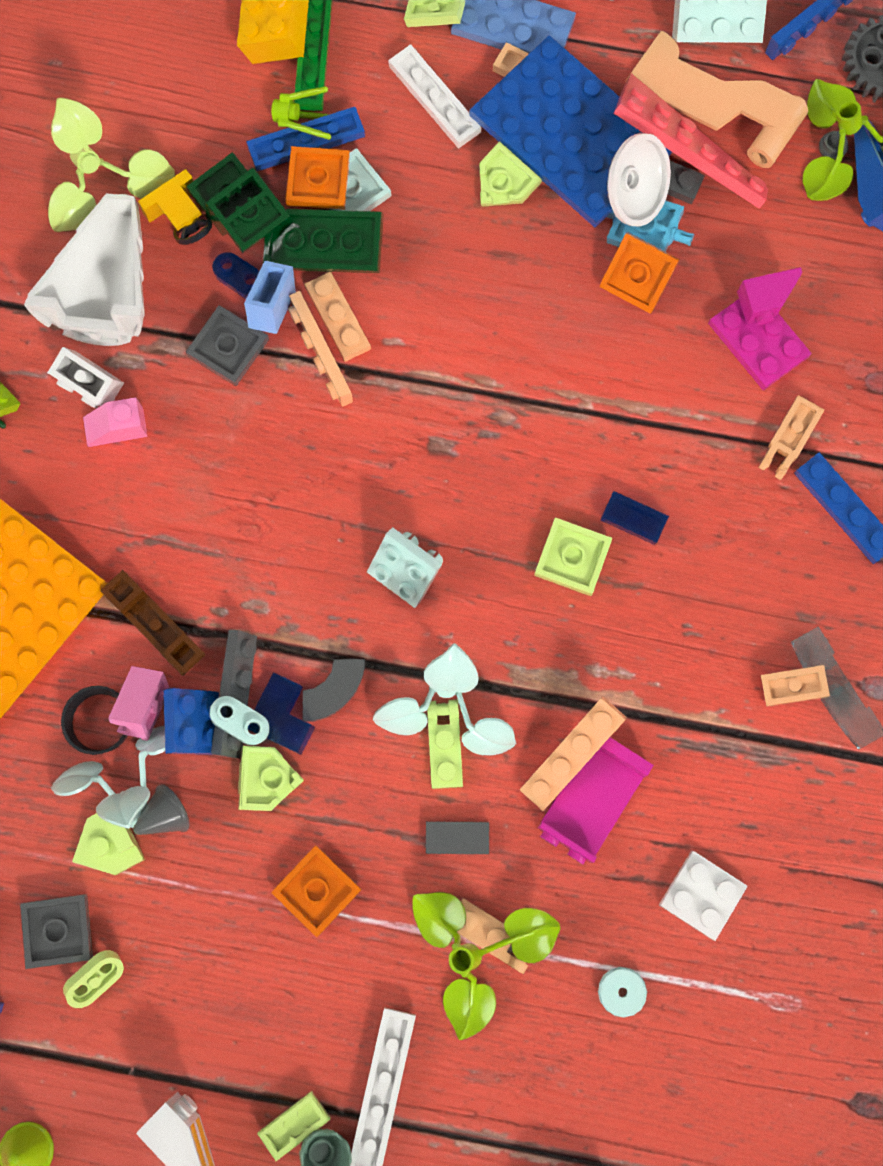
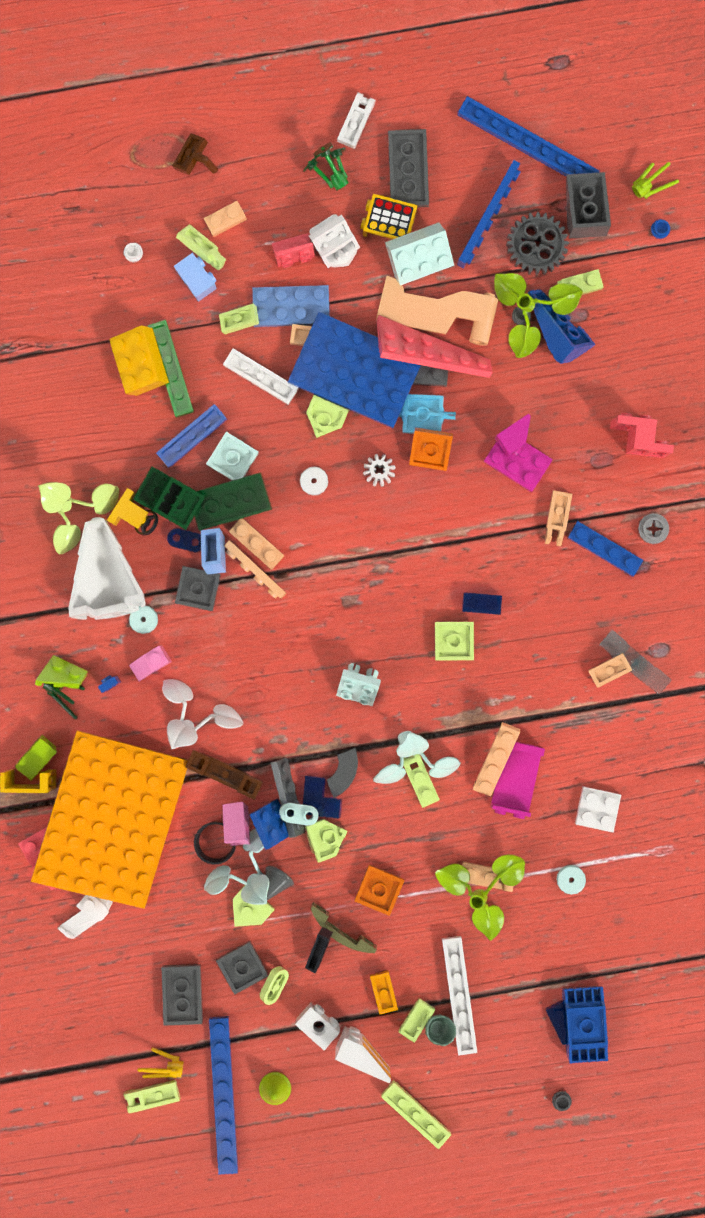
camera: 20 degrees left, 10 degrees up
(42, 430) = (108, 683): none -> blue plate
(84, 377) = (122, 643): white brick -> none
(120, 533) = (182, 731): none -> white plant
(131, 1091) = (321, 1036): none -> white brick
(135, 372) = (147, 626): none -> light aqua piece
(184, 947) = (318, 950): none -> black piece
(210, 897) = (362, 943): none -> olive slope
(260, 1059) = (383, 992): none -> light orange plate
(285, 112) = (172, 423): lime plant -> none
(318, 178) = (211, 462): orange plate -> none
(456, 272) = (314, 488): none -> white piece
(457, 837) = (447, 829): dark grey tile -> none
(559, 270) = (379, 463): none -> white gear
(639, 179) = (411, 395): white dish -> none

